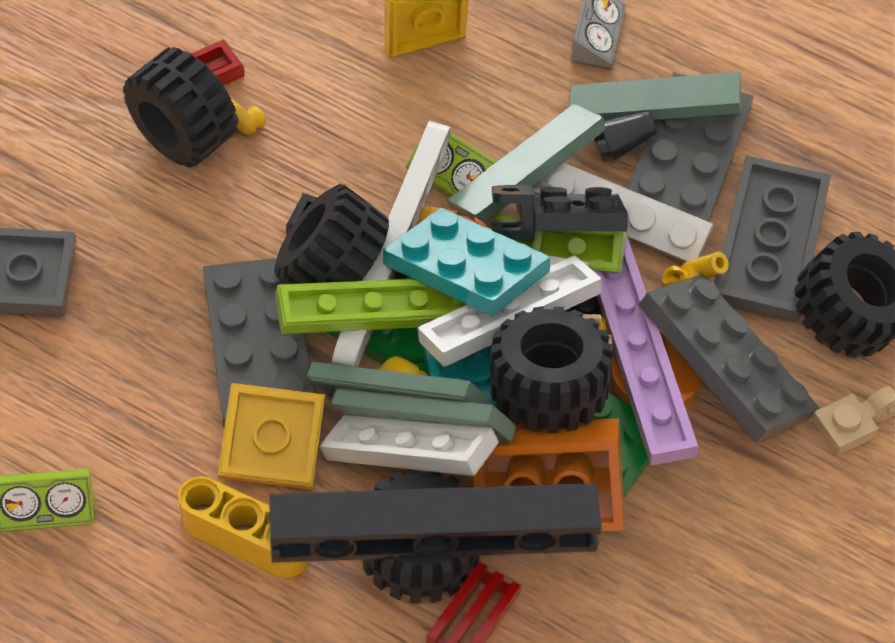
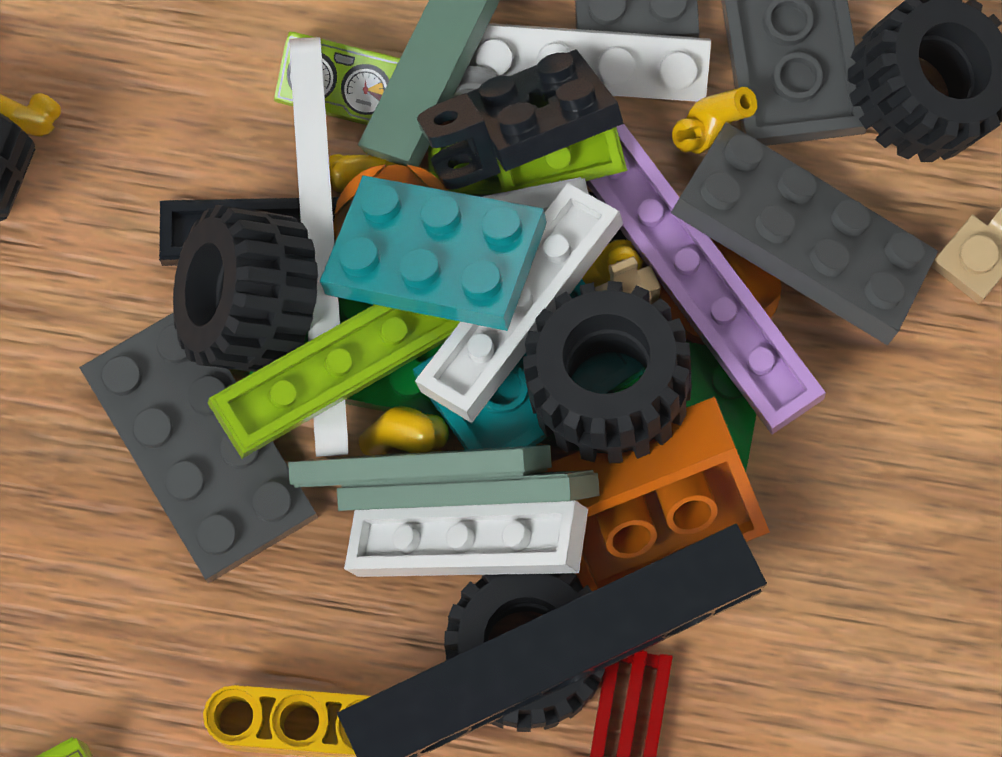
camera: 20 degrees left, 20 degrees up
(271, 436) = (279, 581): yellow tile -> none

